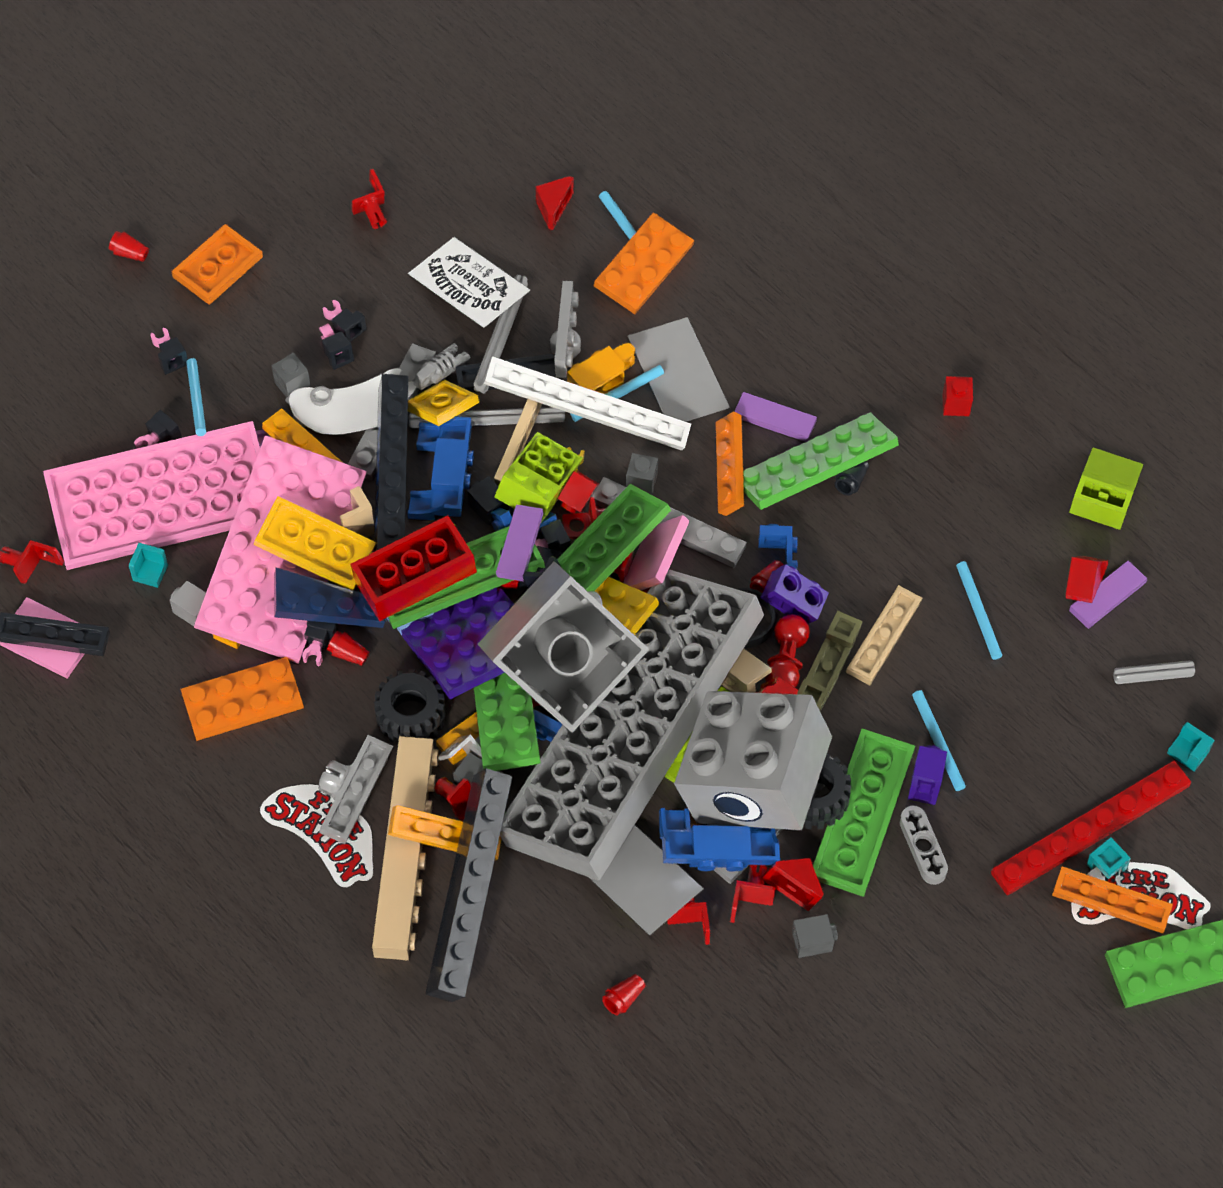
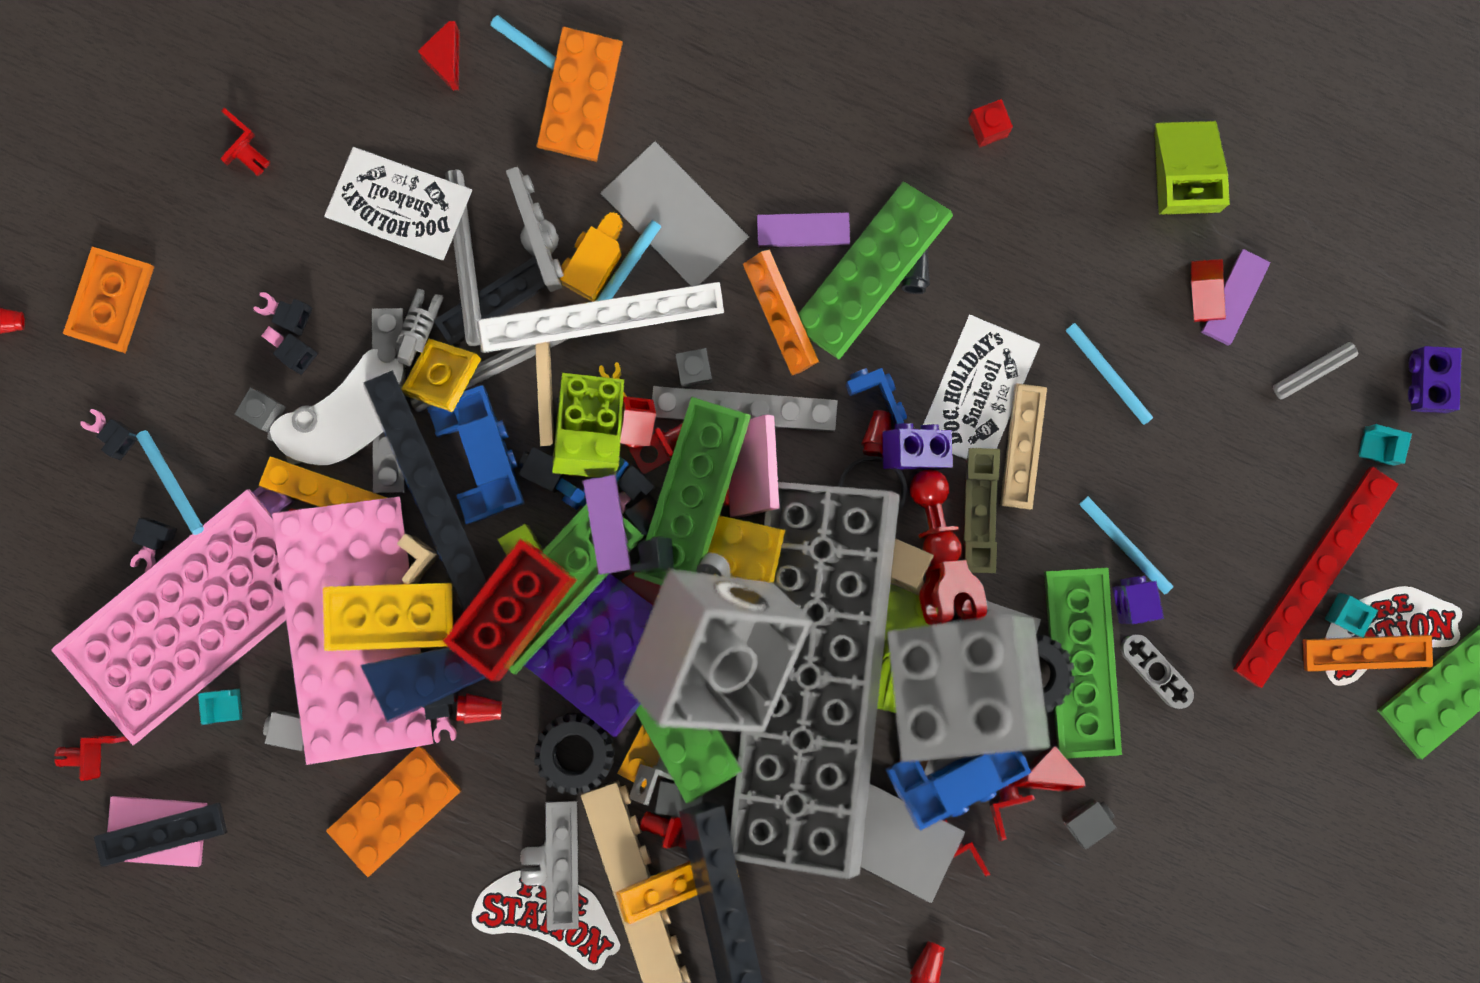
camera: 25 degrees left, 25 degrees up
(869, 578) = (980, 385): none -> white sticker

